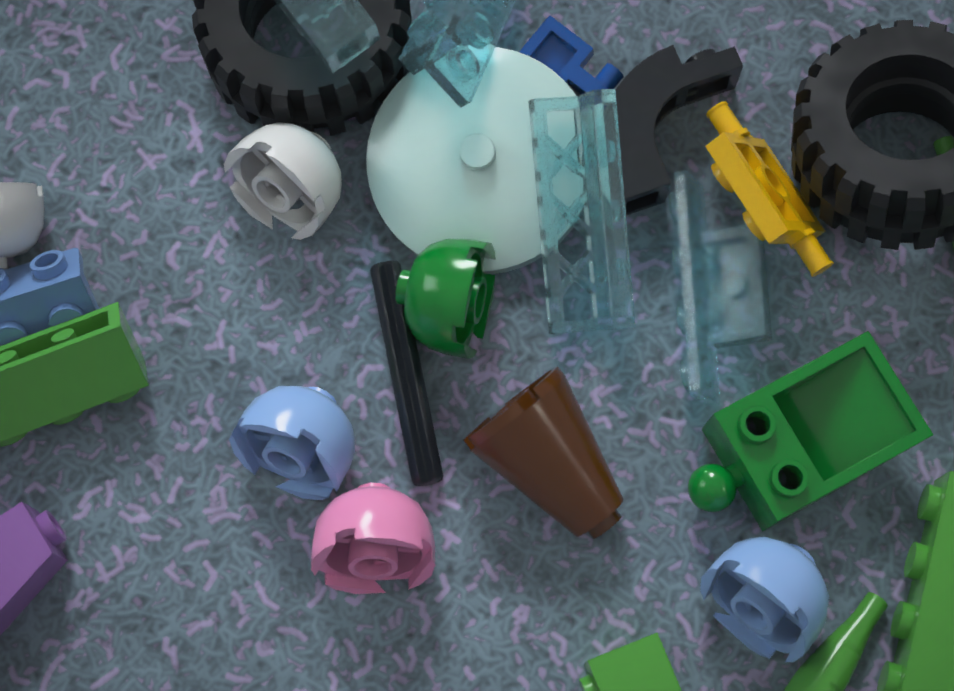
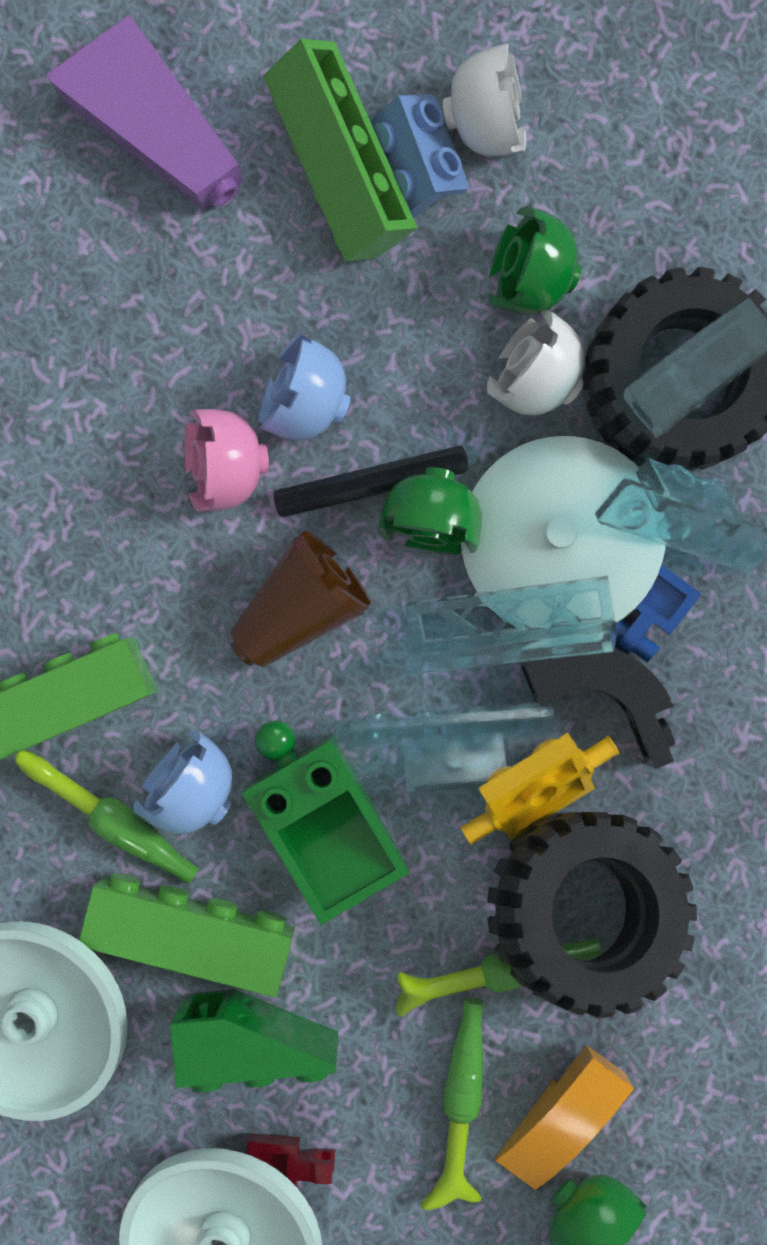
camera: 90 degrees right, 15 degrees up
(160, 173) = (540, 257): none -> green cylinder

